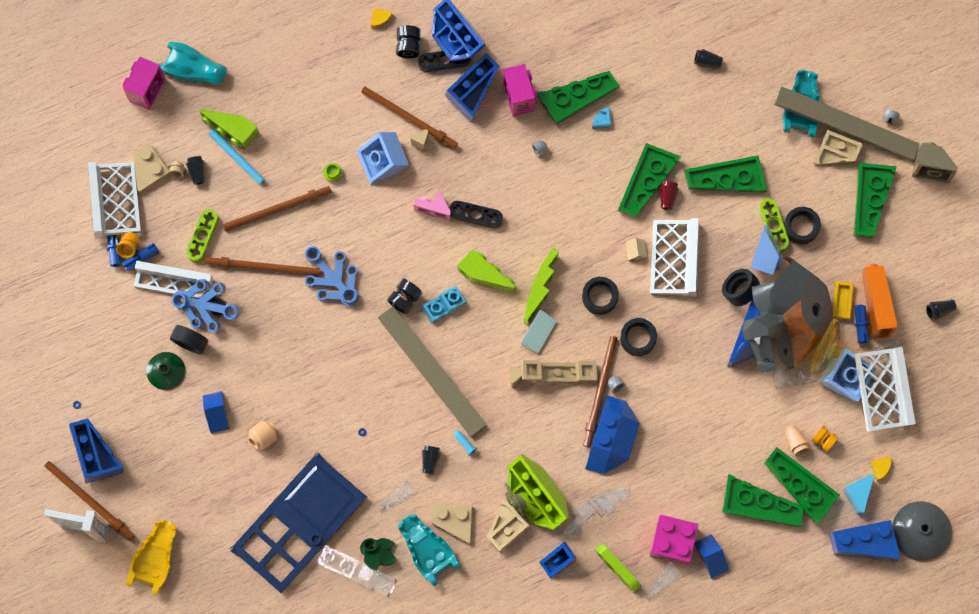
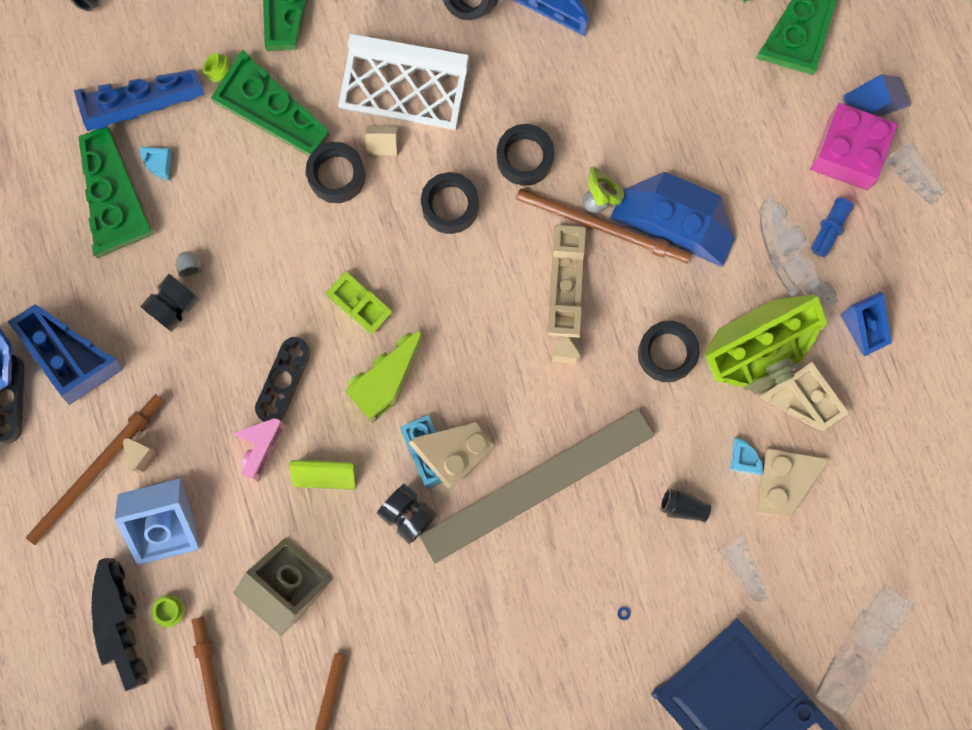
camera: 80 degrees left, 5 degrees up
(327, 140) = (110, 611): none -> black slope
(333, 279) = (357, 631): medium blue plant -> none
(354, 232) = (282, 586): none -> dark tan slope
(379, 552) = (837, 607): dark green plate -> none
(422, 248) = (323, 474): none -> lime slope
(429, 551) = (834, 529): teal animal -> none
(445, 317) = (453, 451): none -> tan wing
(464, 442) = (661, 447): medium azure piece -> none
(464, 493) = (745, 458): none -> medium azure tile
(513, 141) = (170, 302): none -> black wheel
(519, 89) = (83, 279): dark pink brick -> none
(524, 424) = (677, 329): none -> black tyre
(529, 251) = (358, 303): none -> lime slope
(538, 332) = (494, 307): light aqua slope -> none
(539, 291) = (431, 297): lime slope -> none
(609, 210) = (328, 151): none -> black tyre
(615, 385) = (599, 194): none -> lime piece
(617, 567) = (887, 236): lime beam -> none
(619, 532) = (831, 227): none -> blue axle
(635, 92) = (137, 98): none -> blue wing
(667, 143) = (216, 67): none -> lime plate
(668, 194) = (300, 77): dark red cone -> none

